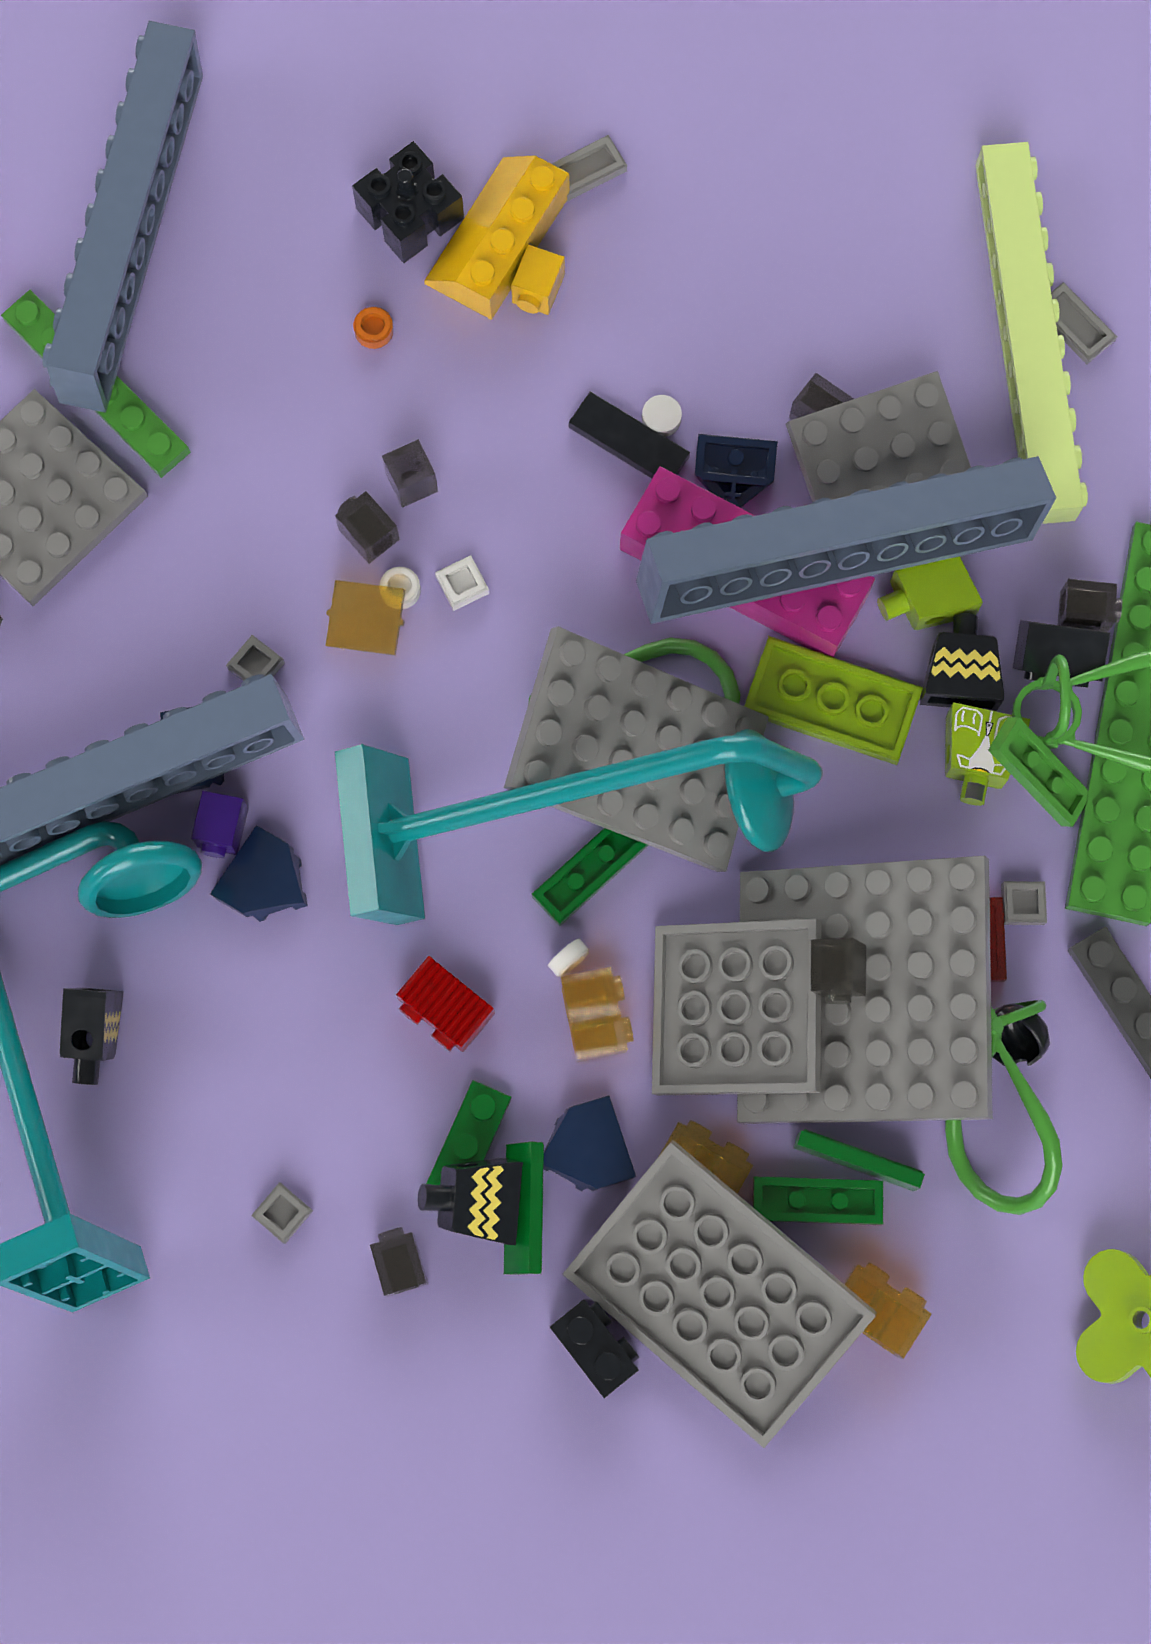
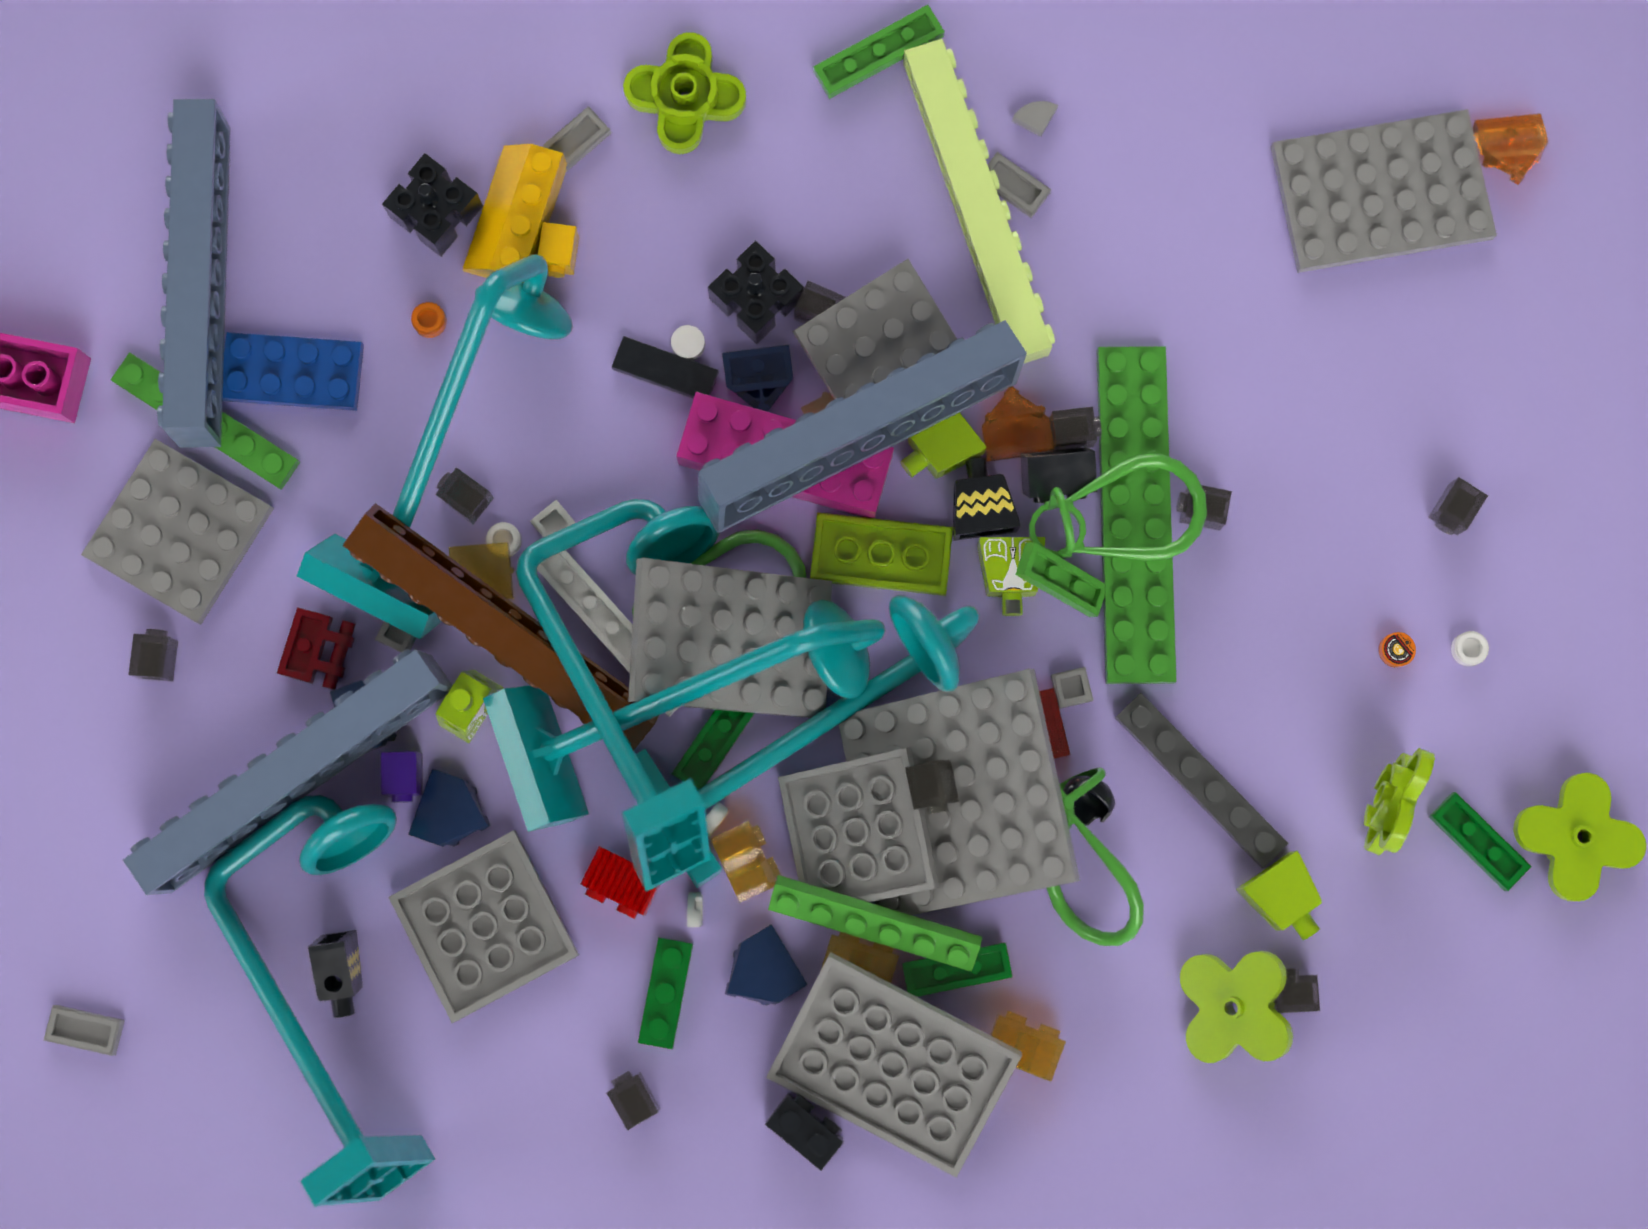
camera: 15 degrees left, 5 degrees up
(146, 654) = (306, 645): none -> dark red plate
(206, 350) = (292, 371): none -> blue plate
(245, 596) = (509, 302): none -> teal piece
(272, 1020) = (483, 926): none -> light grey plate
(282, 1213) = (529, 1080): light grey tile -> none
(310, 761) = (464, 706): none -> lime torso
(367, 669) = (478, 612): none -> reddish brown brick
(410, 473) = (489, 442): clear smoke brick -> none
(477, 1199) = (684, 1035): black torso -> none
(484, 685) = (591, 606): none -> white plate
(519, 928) = (668, 828): none -> teal piece
(522, 1059) = (695, 909): none -> white tile
(527, 1253) = (723, 1032): green tile -> none
(720, 143) = (686, 70): none -> lime plant
(734, 1120) = (875, 923): none -> bright green plate
(752, 374) = (755, 292): none -> black brick
(859, 1160) = (990, 930): green tile -> none
(877, 799) = (930, 650): none -> teal piece
(947, 144) = (877, 51): none -> bright green plate
(1020, 591) = (1015, 428): none -> clear orange slope
(1115, 252) = (1035, 116): none -> light grey tile

